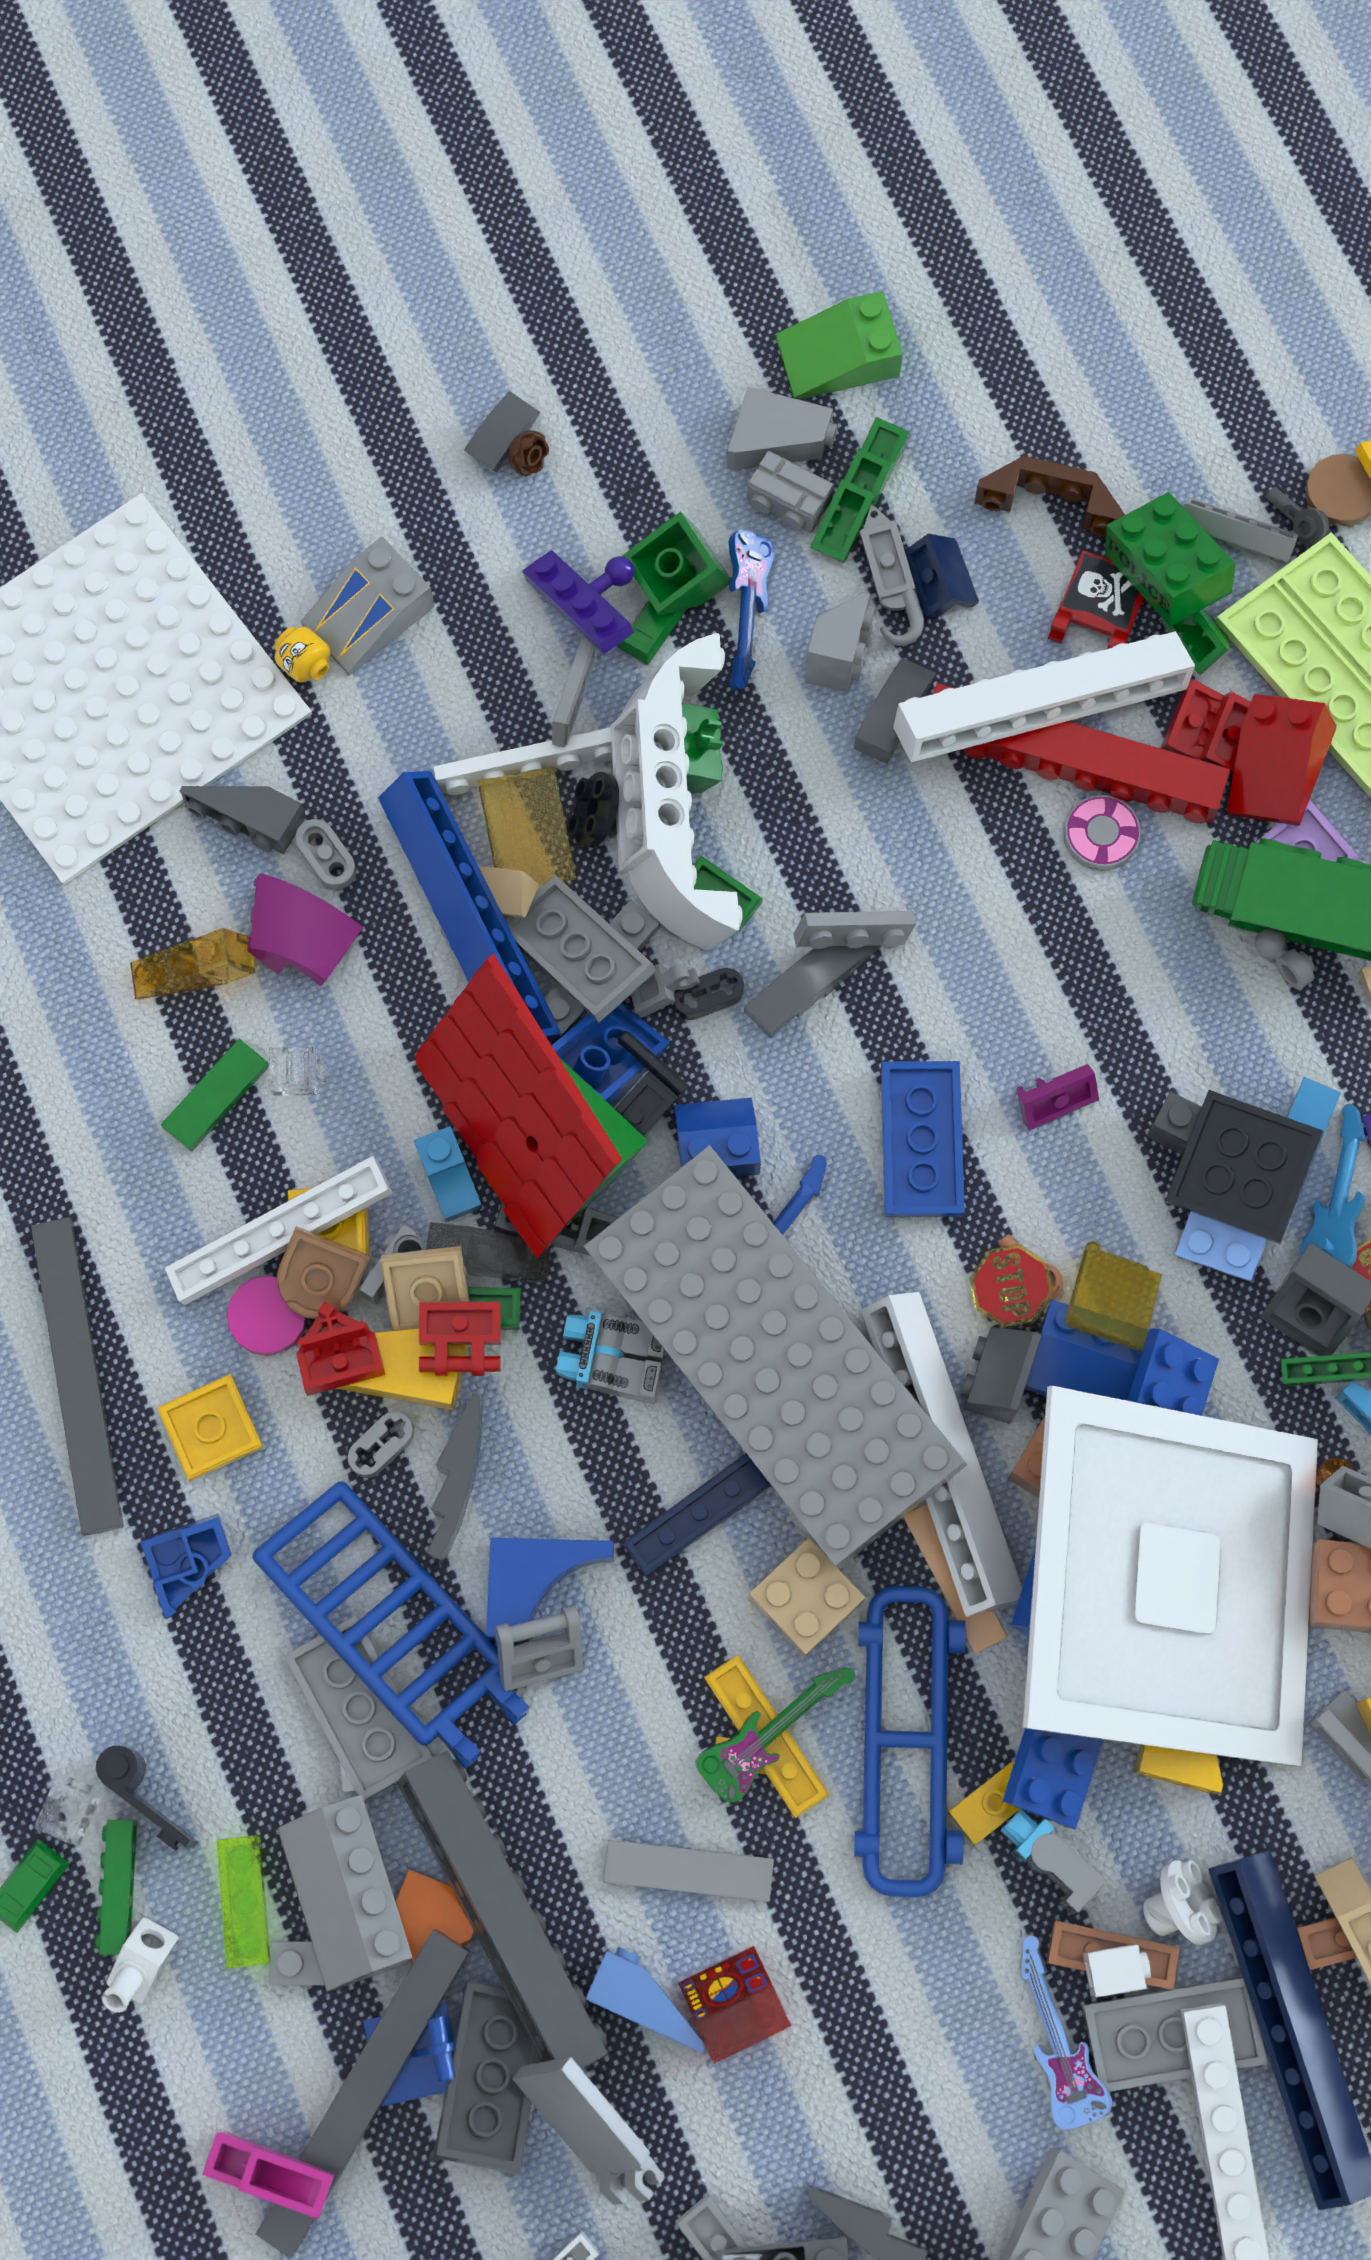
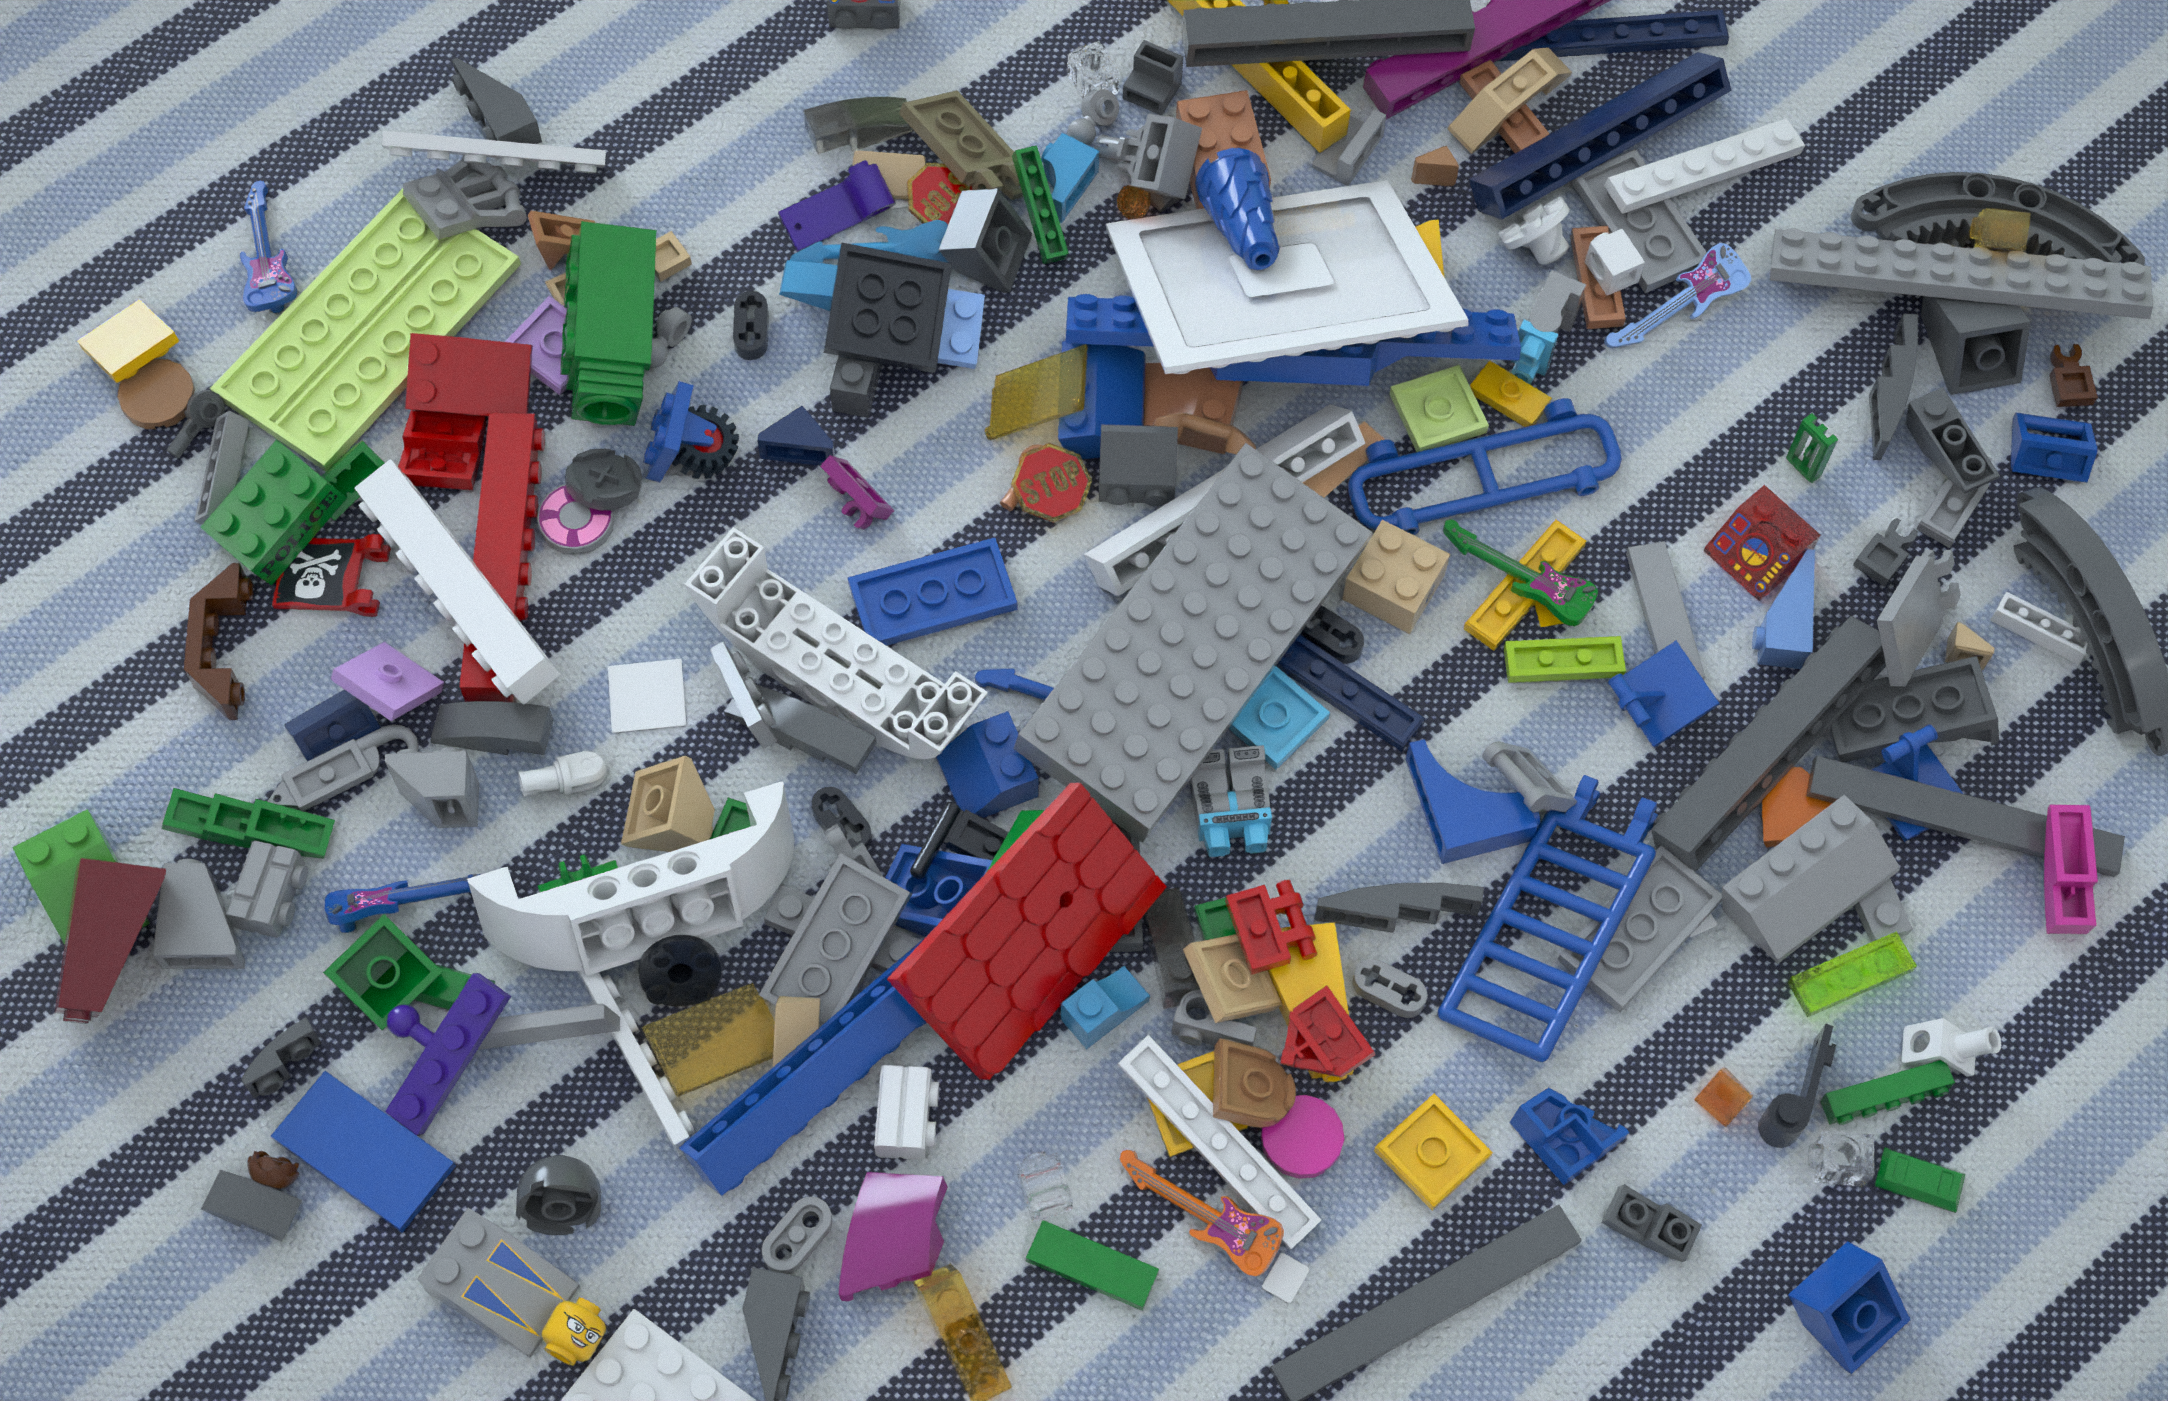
camera: 110 degrees left, 10 degrees down
(75, 1607) = (1650, 1224): none -> dark grey slope
(147, 1260) = (1285, 1278): none -> white sticker
(170, 1725) = (1724, 1096): none -> clear orange slope
(186, 1231) = (1246, 1237): none -> orange piece
(404, 971) = (904, 1112): none -> white brick
(427, 667) = (558, 1195): none -> dark grey cylinder
(523, 527) = (363, 1151): none -> blue tile
(550, 2185) = (1965, 643): none -> tan slope
(592, 1825) = (1664, 694): none -> blue plate
(626, 474) = (268, 1069): none -> dark grey slope
(666, 1741) = (1564, 659): none -> lime plate
(682, 2138) = (1885, 554): none -> dark grey plate
(686, 1431) = (1279, 718): none -> medium azure plate
(761, 840) = (668, 808): none -> tan slope
(769, 1526) = (1331, 632): none -> black beam
(782, 344) = (102, 926): none -> dark red slope
(822, 2099) = (1818, 440): none -> green tile
(826, 763) = (567, 774): none -> white arm
(870, 1017) = (827, 655): none -> white slope
(894, 856) = (646, 695): none -> white sticker
(965, 626) = (387, 681): none -> lavender plate
(987, 1715) = (1439, 409): none -> yellowish green plate
(993, 1479) = (1234, 436): none -> medium nougat bar
(1132, 1057) = (795, 440): none -> dark blue slope
(1134, 863) = (603, 479): none -> dark grey tile
(1152, 957) = (689, 438): none -> plate
(1278, 1566) = (1238, 201): none -> blue cone
(1284, 1039) = (743, 325): none -> black beam
(1300, 1821) = (1435, 168): none -> medium nougat slope

